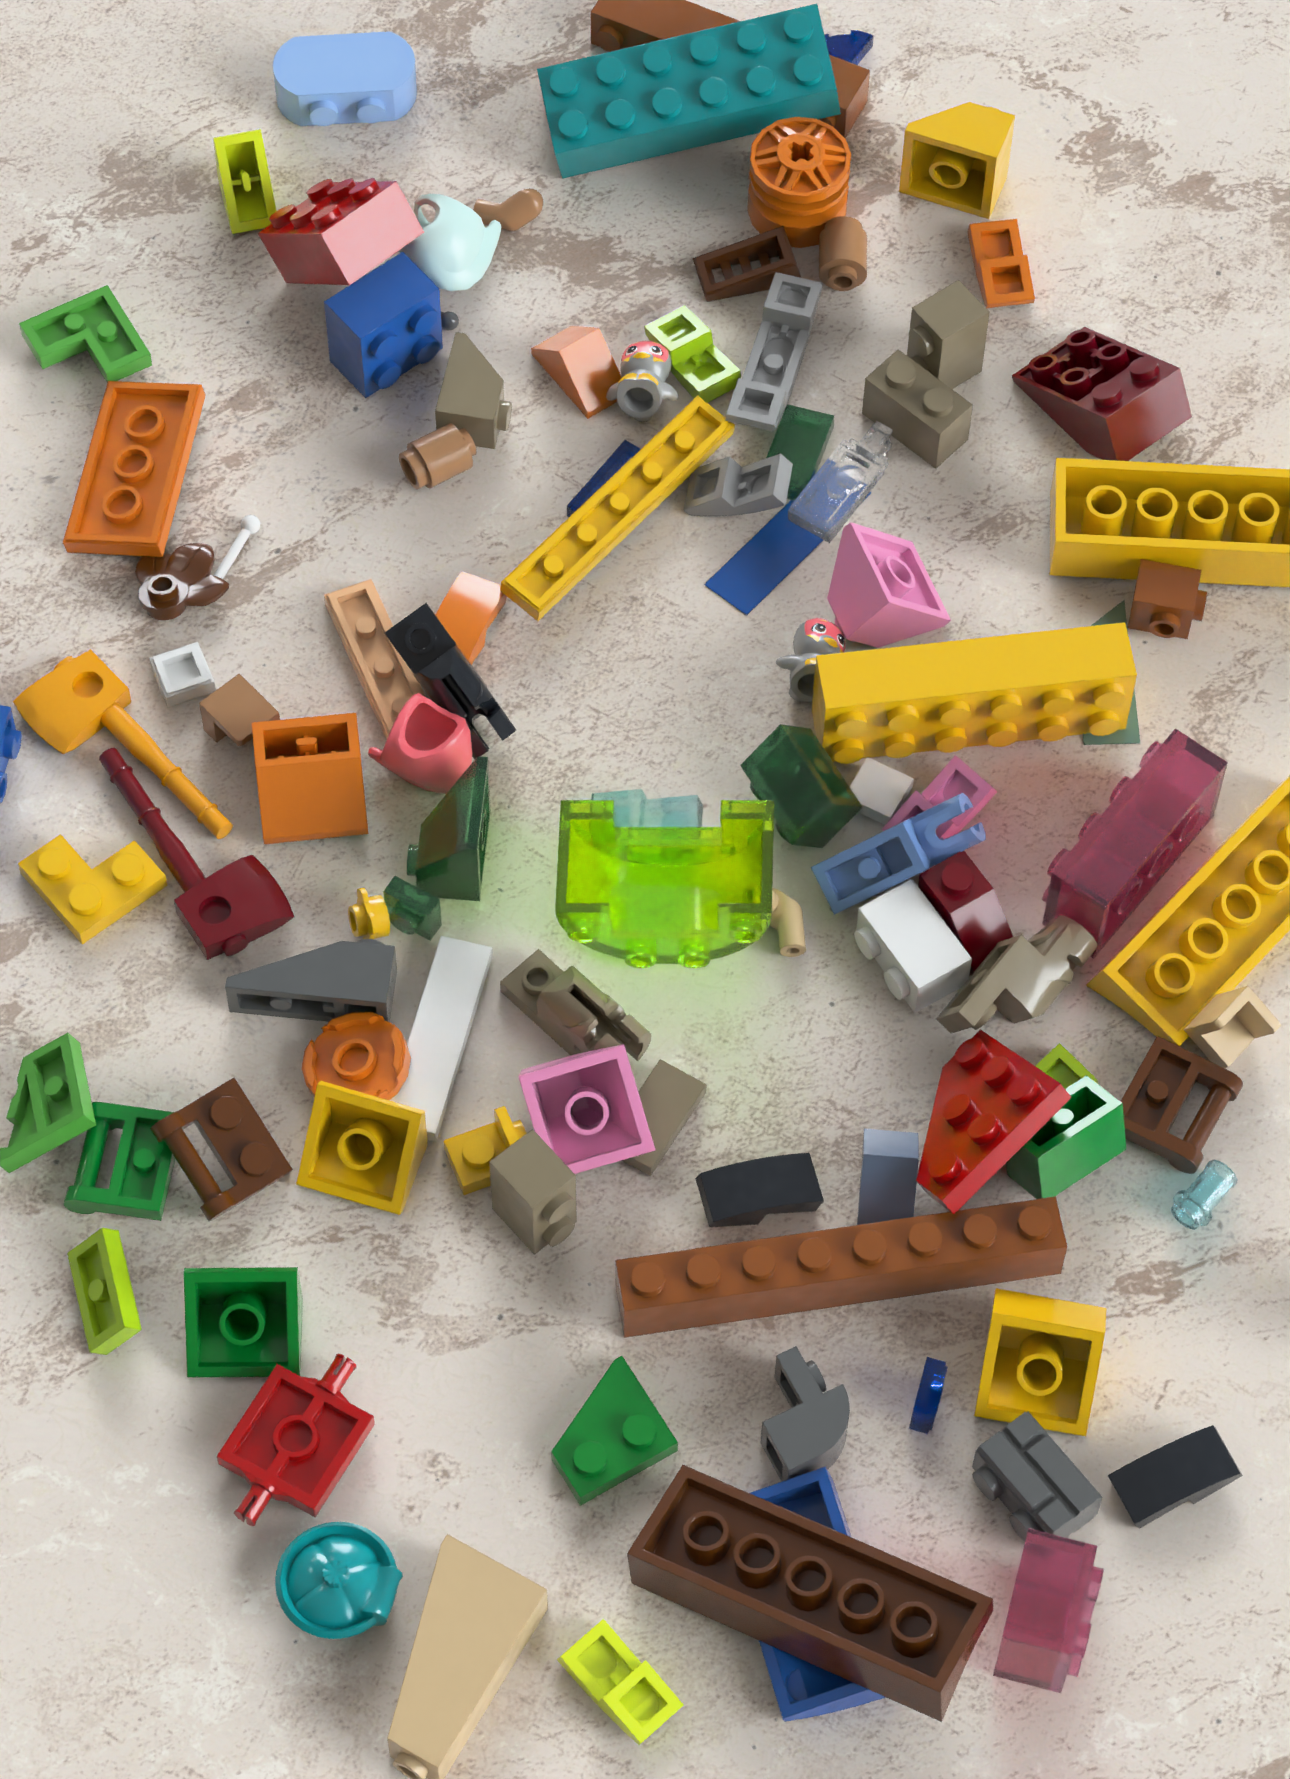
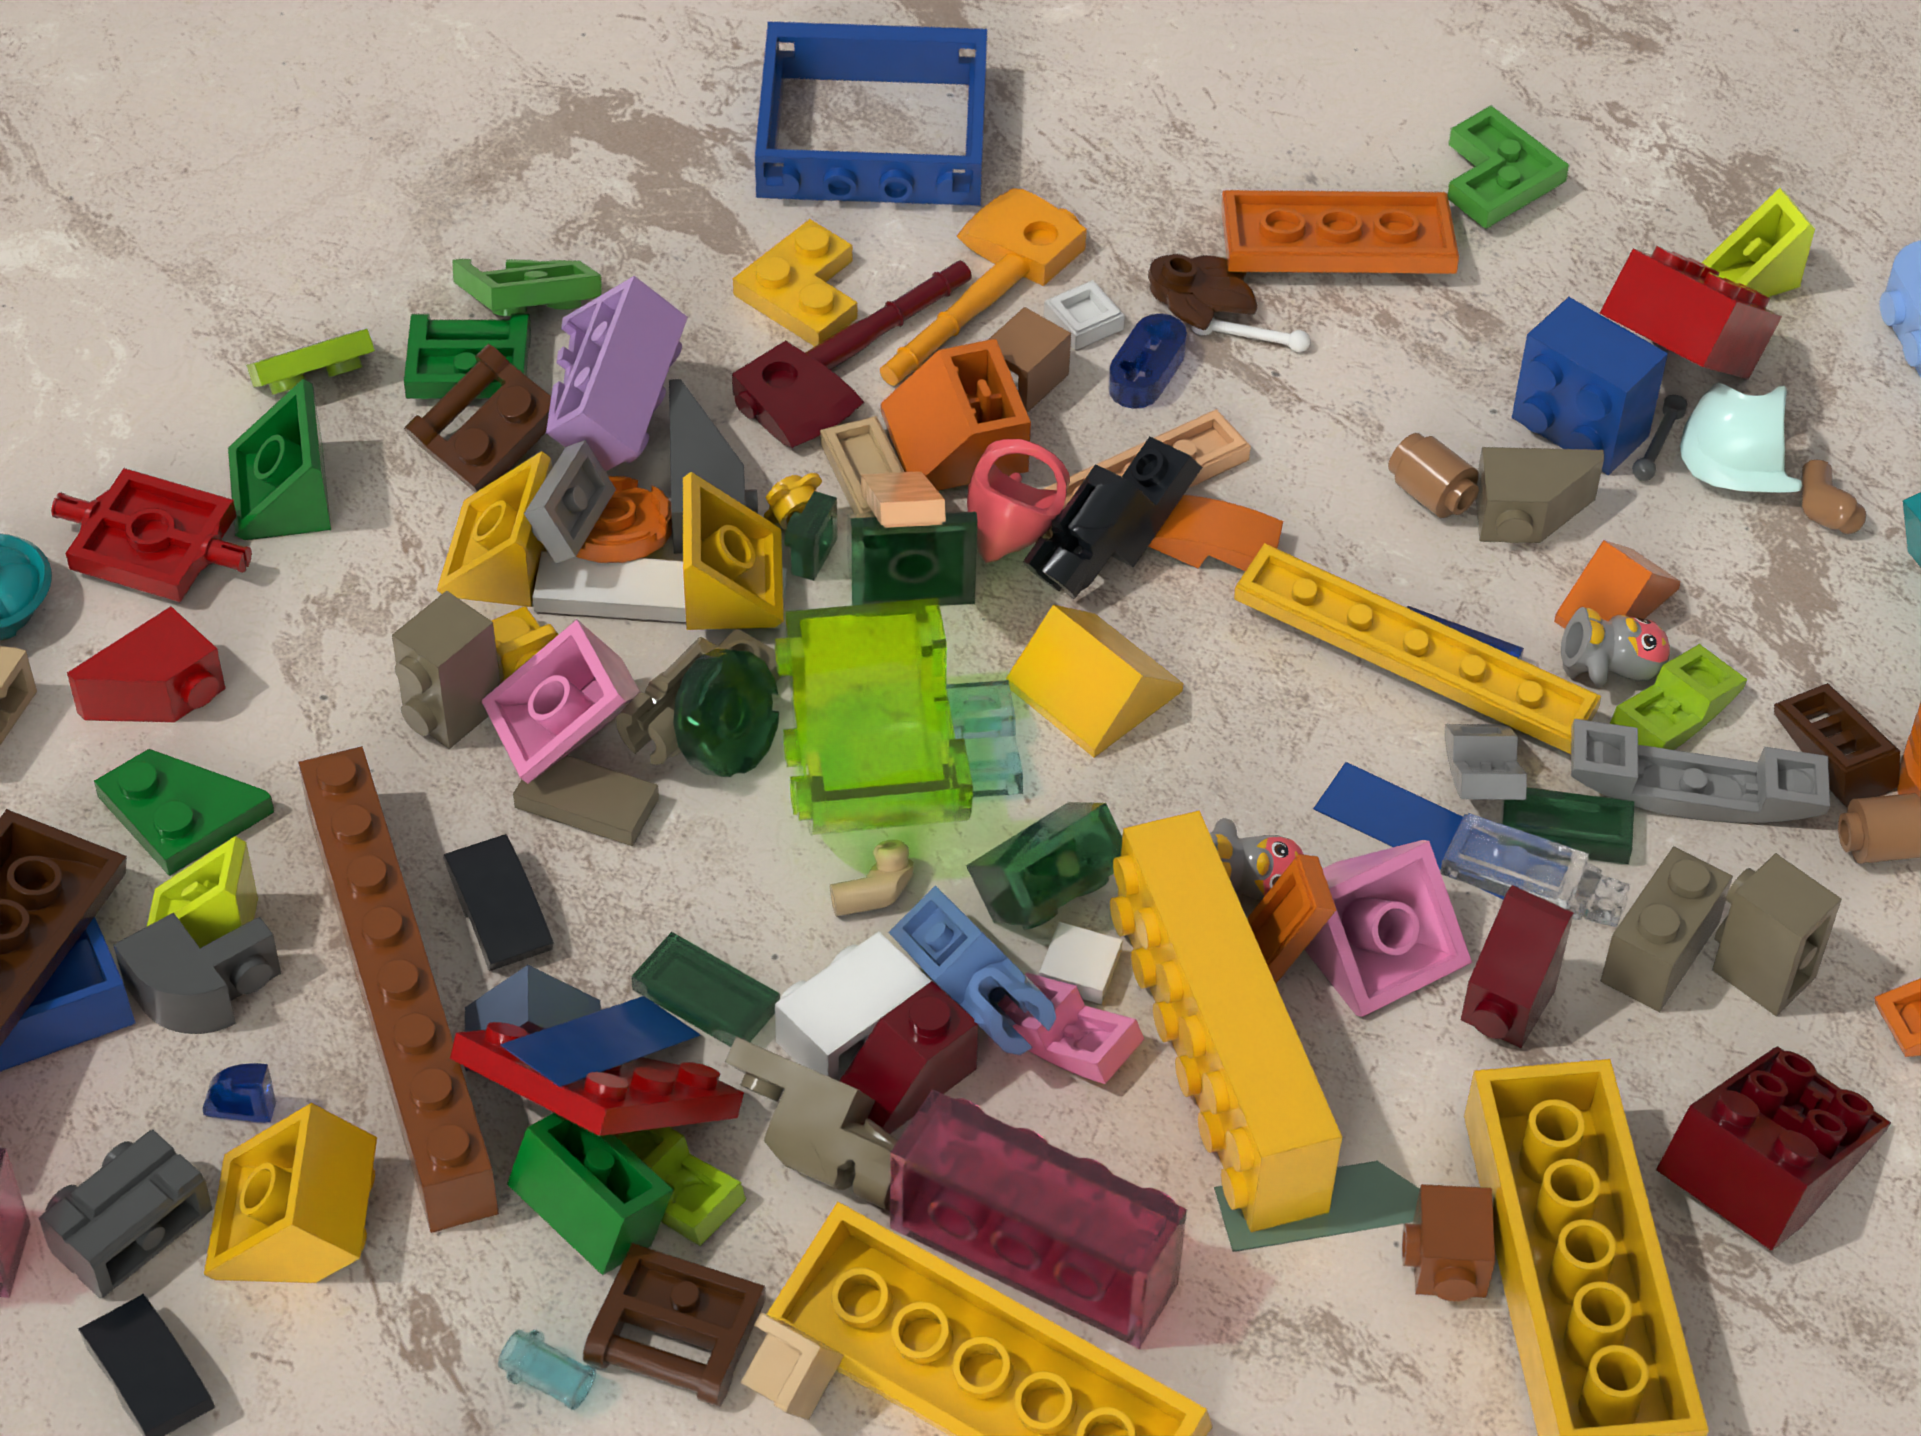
camera: 80 degrees right, 10 degrees down
(216, 1026) = (615, 371): none -> lavender wedge
(256, 630) = (1157, 364): none -> clear blue beam
(331, 863) = (858, 450): none -> tan tile
(352, 1069) = (569, 502): none -> light grey plate
(444, 810) = (903, 499): none -> light nougat tile
(445, 974) = (729, 562): none -> yellow slope
(468, 1439) = (149, 674): none -> red slope
(601, 735) = (1089, 679): none -> yellow slope
(617, 987) = (726, 712): none -> clear green tile
(733, 1410) = (210, 894): none -> neon yellow slope
(867, 1051) = (705, 990): none -> clear green tile
(890, 618) = (1292, 913): none -> orange tile
(950, 504) = (1517, 967): none -> dark red slope
(950, 1105) = (600, 1040): none -> blue sticker

